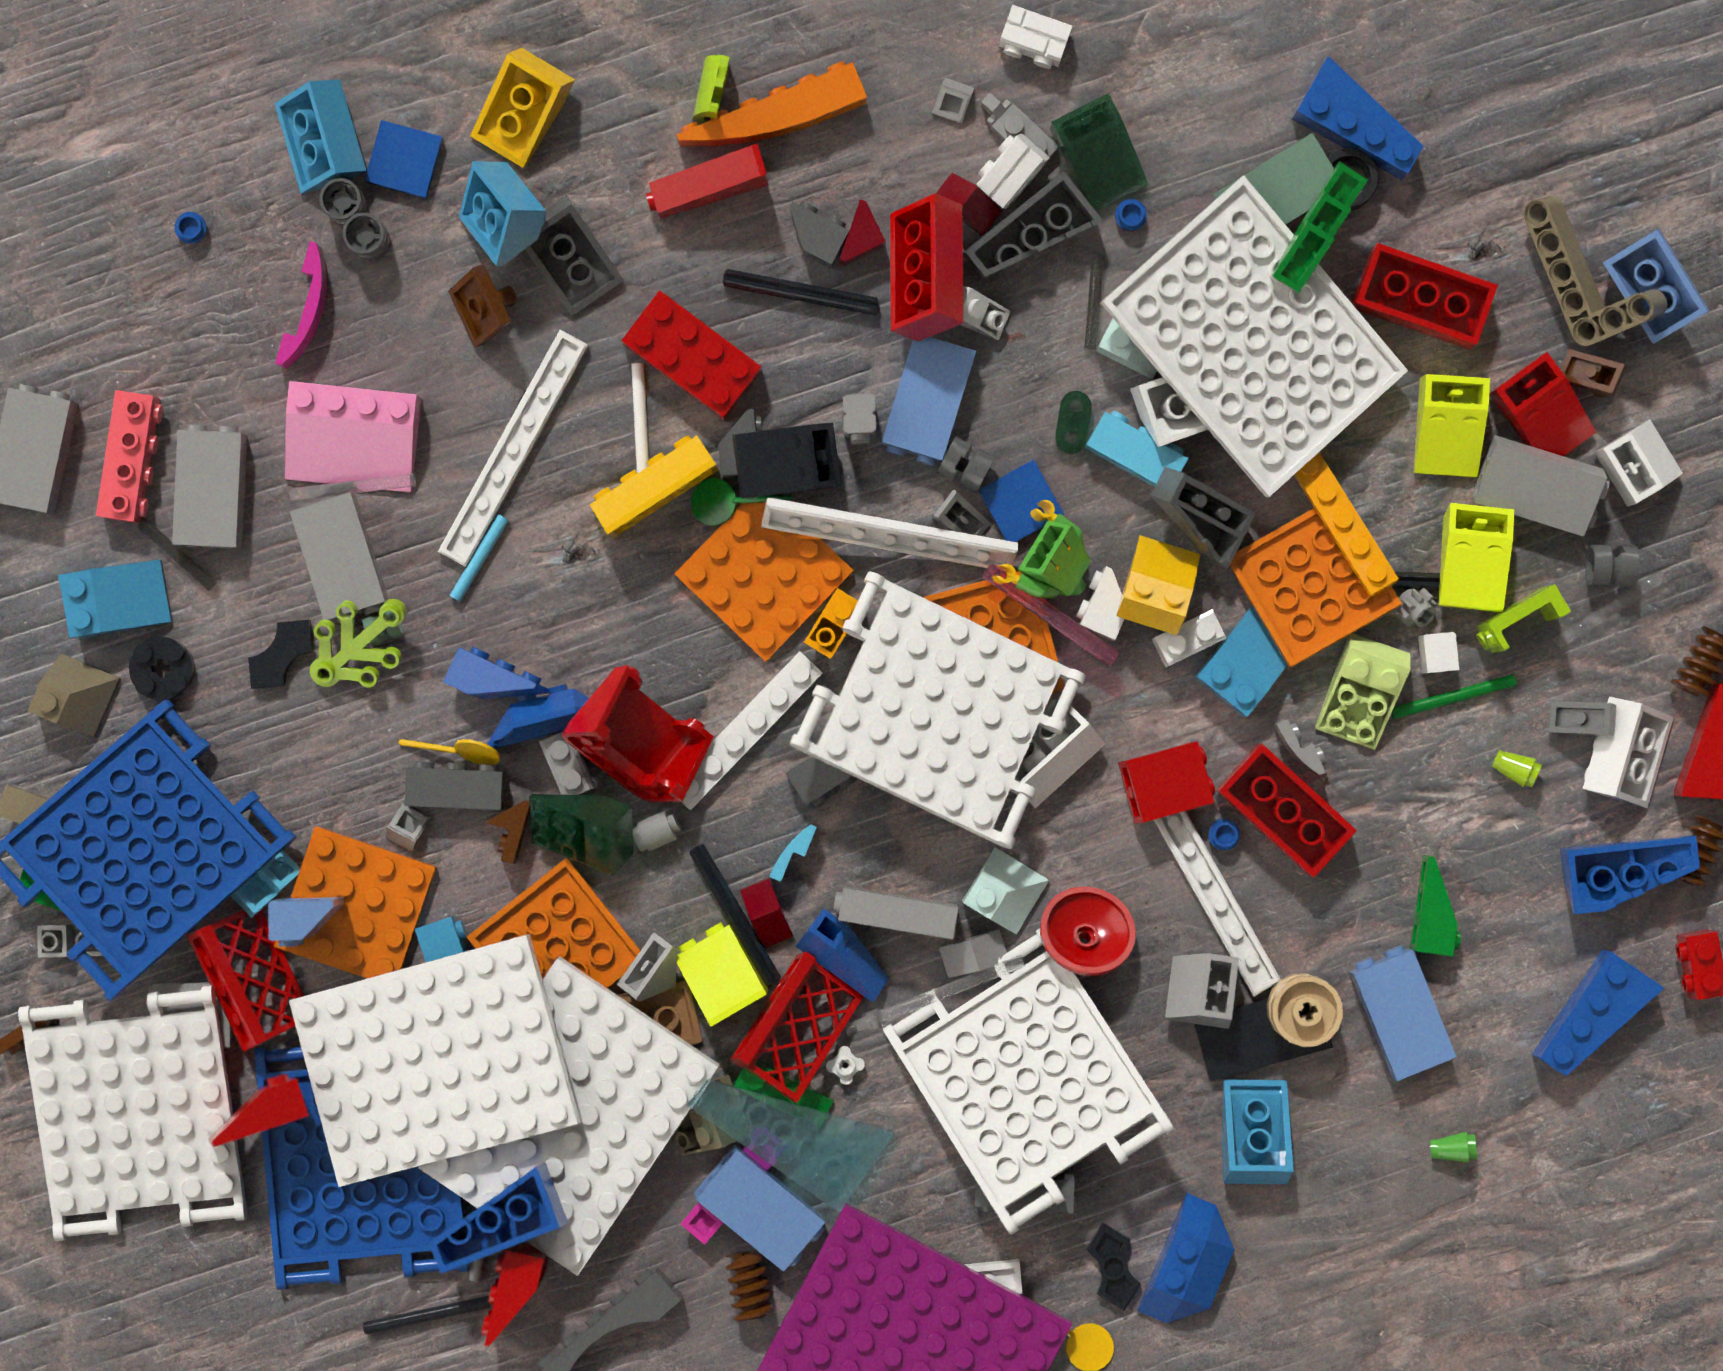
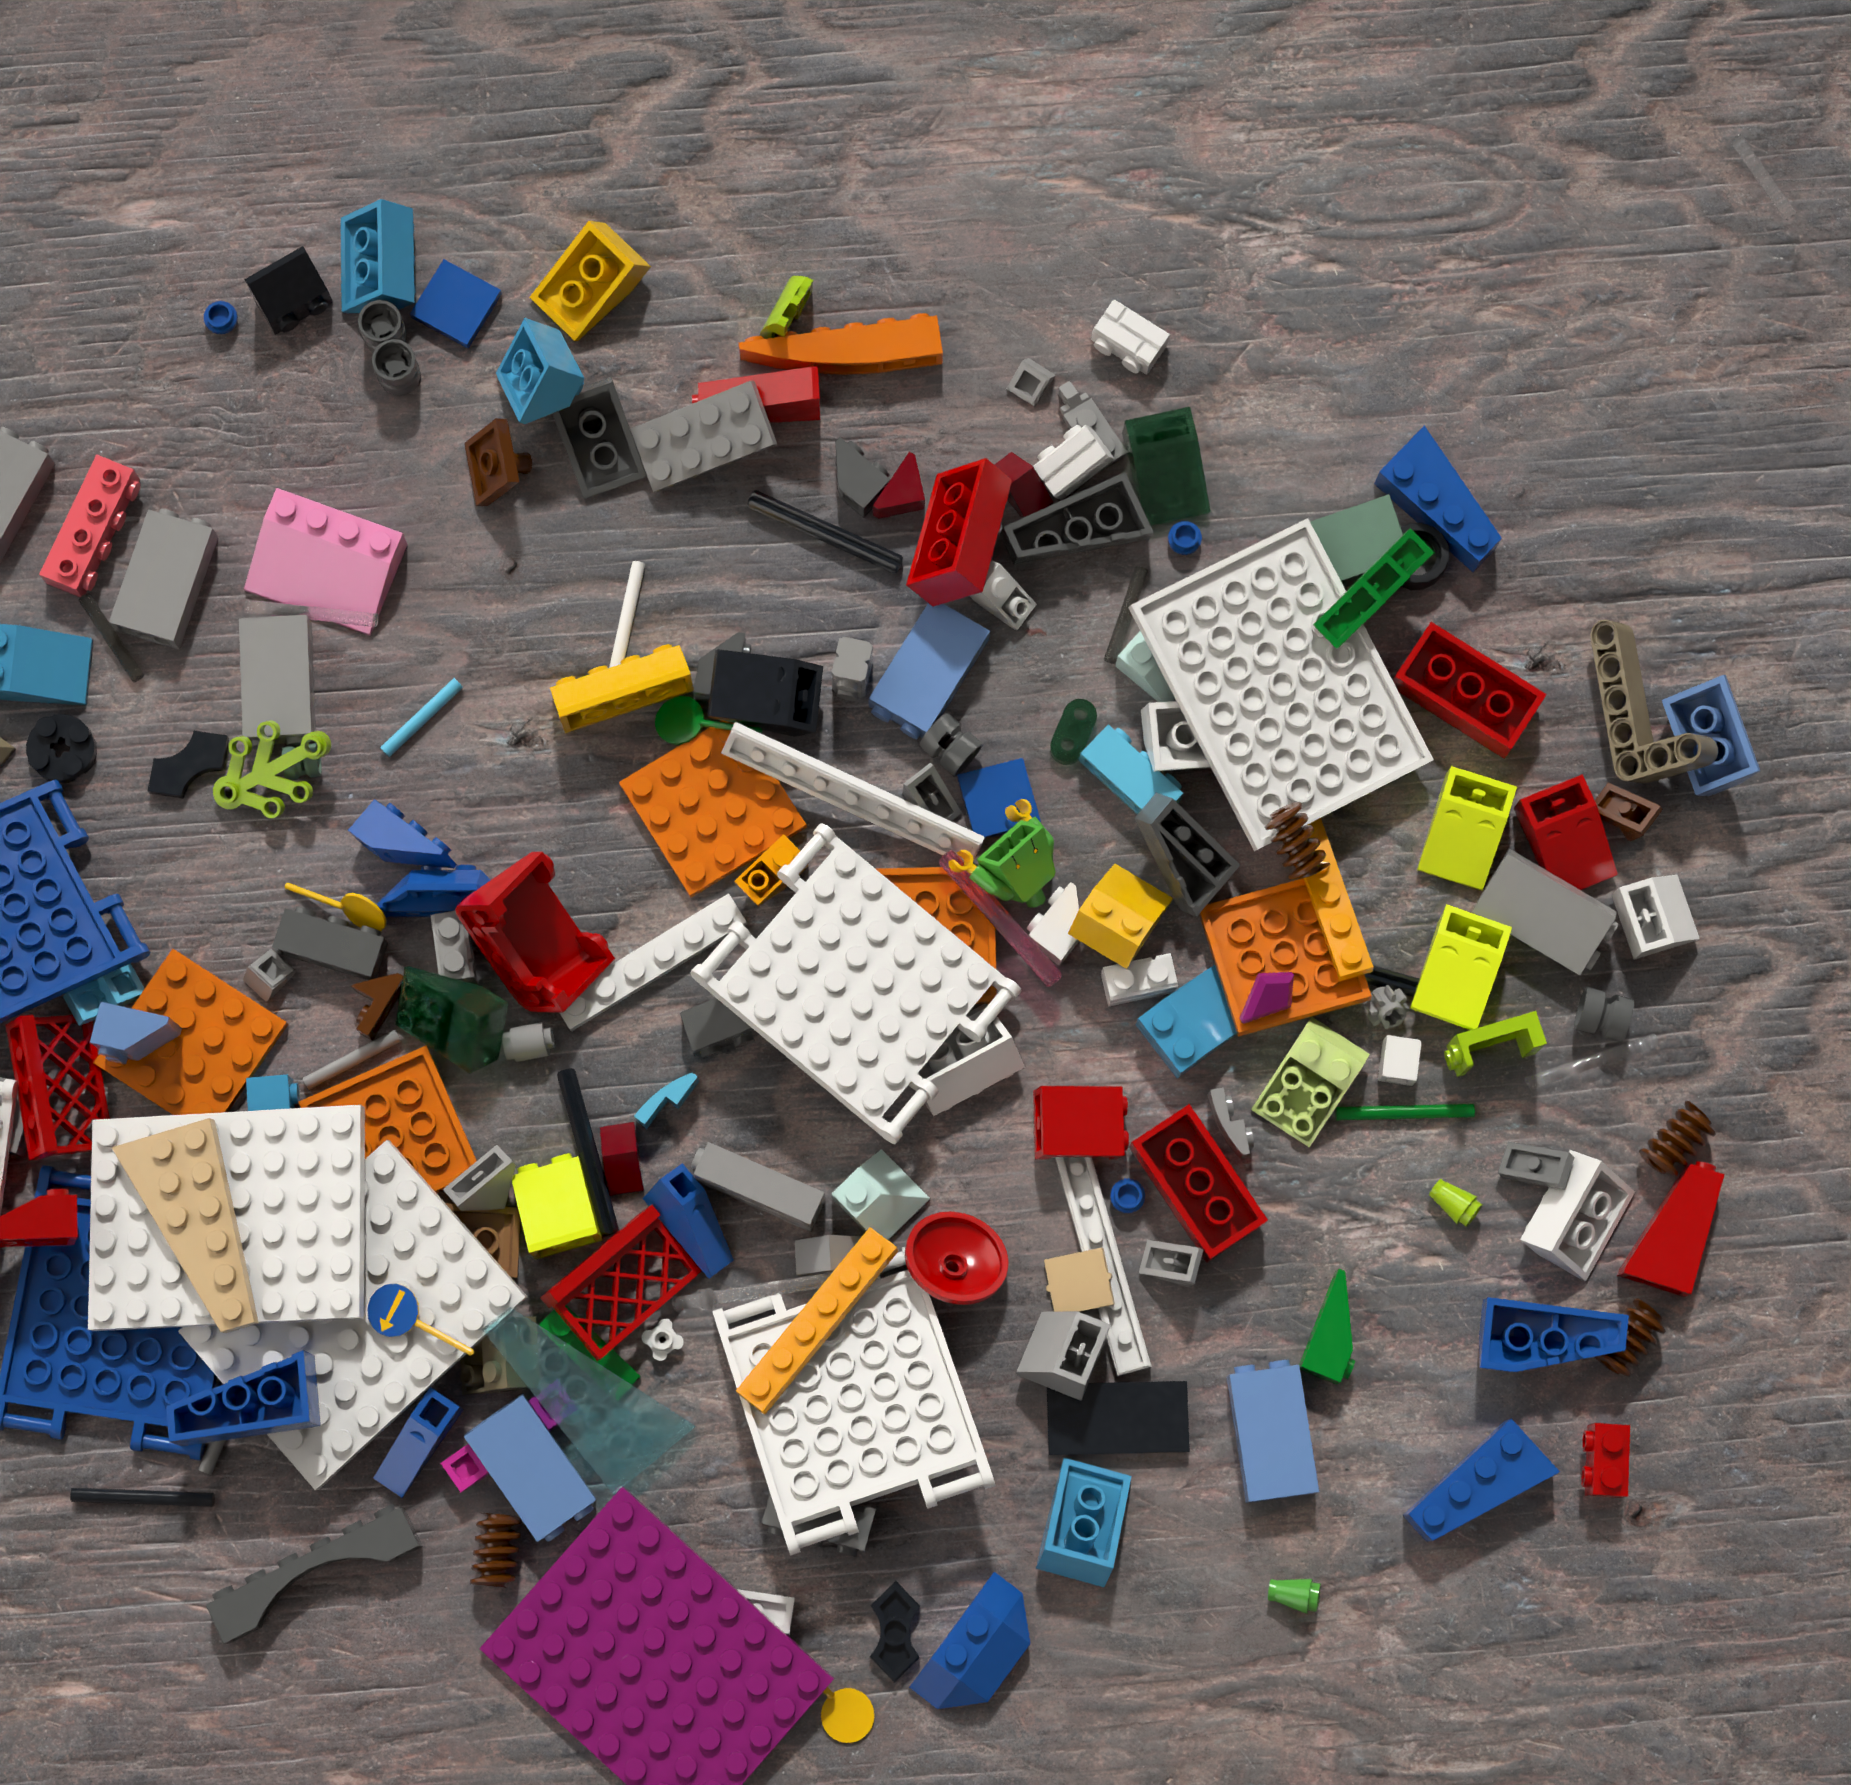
camera: 10 degrees right, 10 degrees down
(248, 189) = (289, 291): none -> black slope
(293, 346) = (291, 457): dark pink slope -> none
(398, 1056) = (190, 1199): none -> tan wing
(502, 885) = (351, 1059): none -> light grey bar
(513, 448) = (487, 616): white tile -> none
(521, 1274) = (251, 1479): red slope -> none
(606, 1109) = (395, 1311): none -> blue piece
(655, 1208) = (417, 1441): none -> blue slope
(667, 232) = (703, 436): none -> light grey plate
(692, 355) = (696, 566): red brick -> none
(979, 1019) = (817, 1321): none -> light orange plate
(1200, 922) = (1079, 1281): none -> tan piece
(1278, 885) = (1171, 1262): none -> light grey slope
(1304, 481) = (1296, 841): none -> reddish brown piece
(1310, 628) = (1268, 995): none -> magenta piece
(1321, 1019) = (1185, 1387): tan wheel -> none

